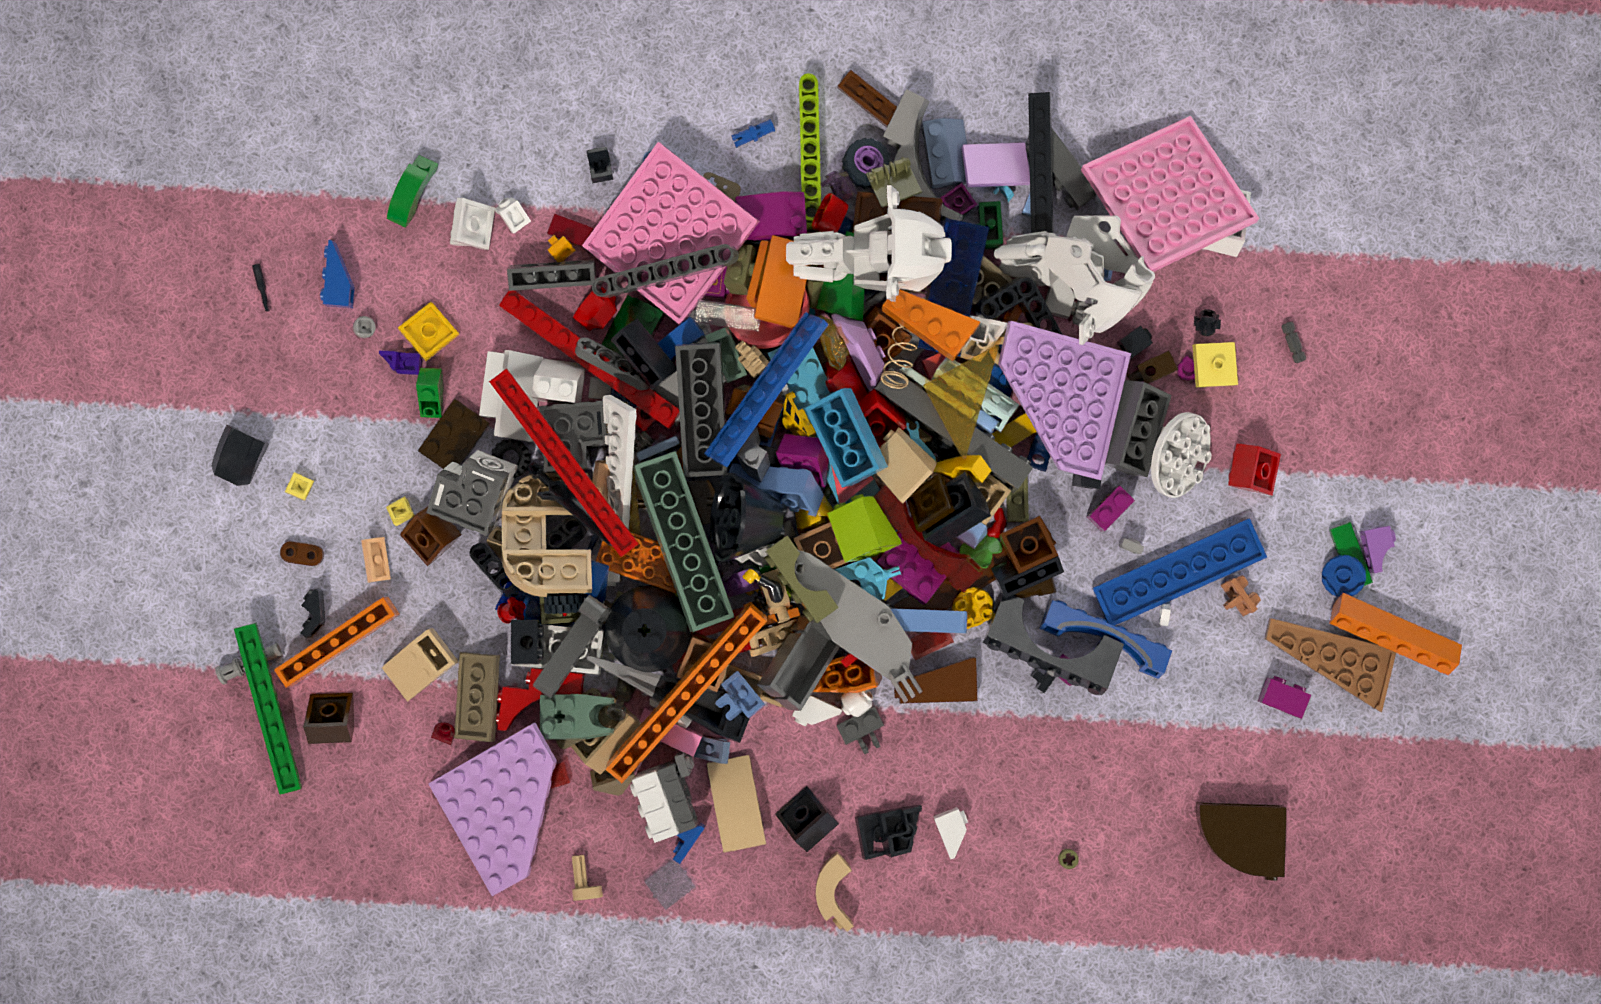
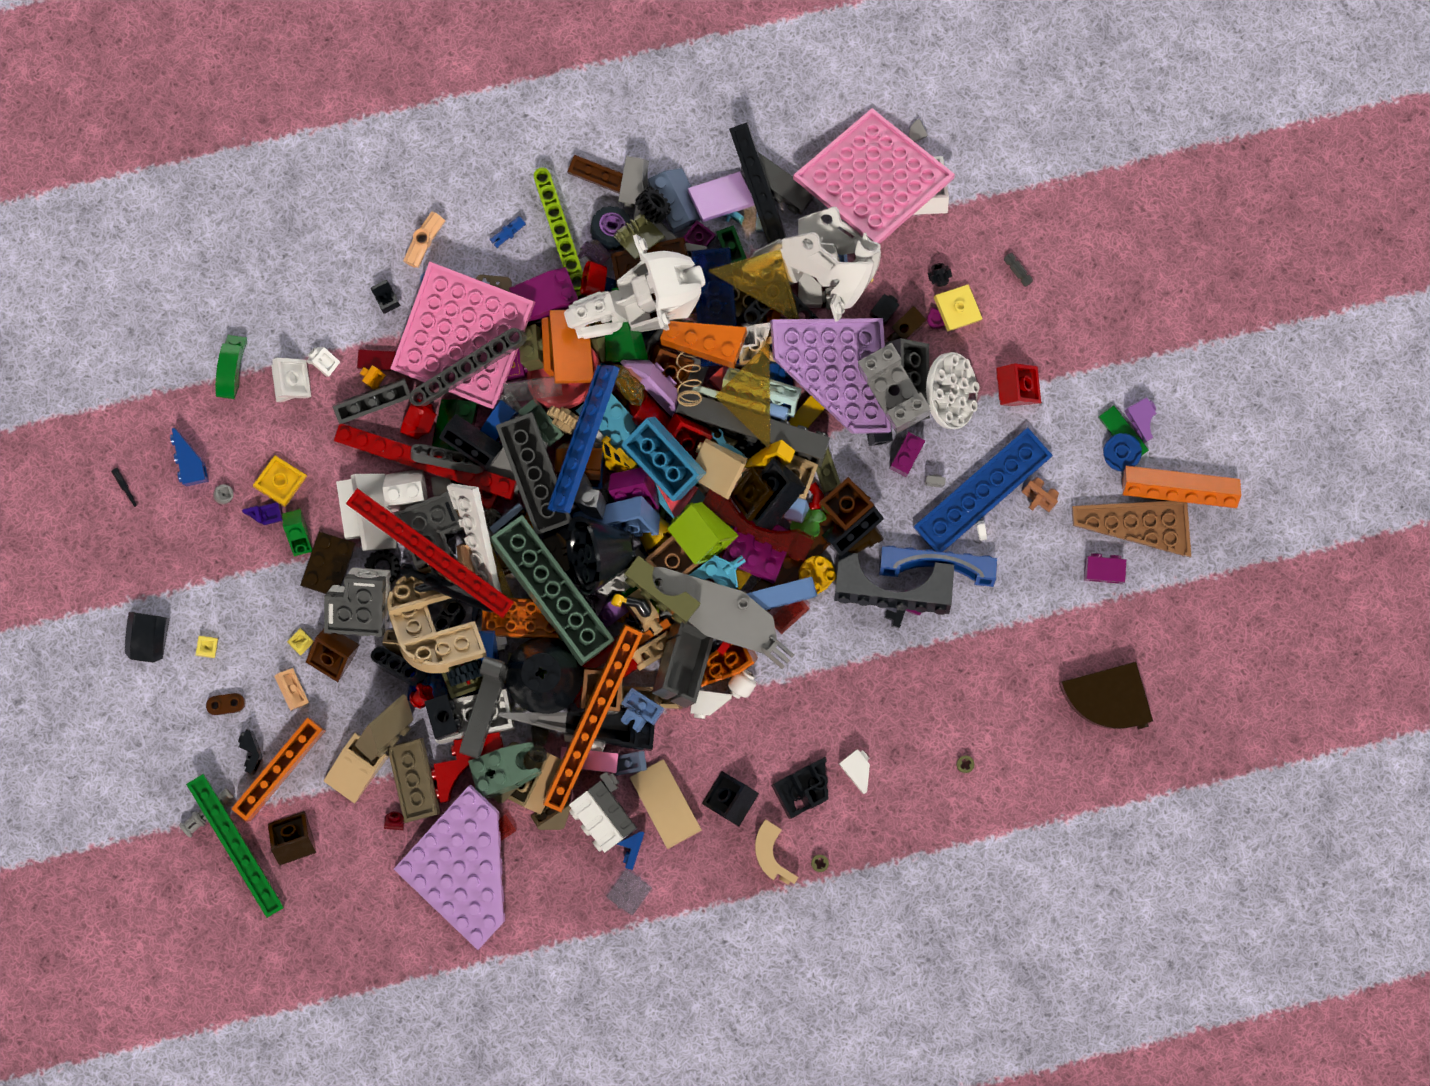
camera: 20 degrees left, 5 degrees down
(462, 636) = (386, 729): none -> dark tan slope
(581, 889) = (554, 920): tan piece -> none
(669, 104) = (417, 250): none -> light nougat piece
(857, 727) = (753, 704): dark grey hinge -> none
(874, 916) = (825, 860): none -> olive bush
(919, 153) = (653, 205): none -> black tyre
(944, 684) = (813, 646): reddish brown slope -> none
(1014, 273) = (763, 279): none -> clear yellow tile
(1038, 447) = (831, 422): dark blue bracket -> none
(1117, 413) = (885, 370): none -> light grey plate
(1232, 156) = (917, 131): none -> light grey tile

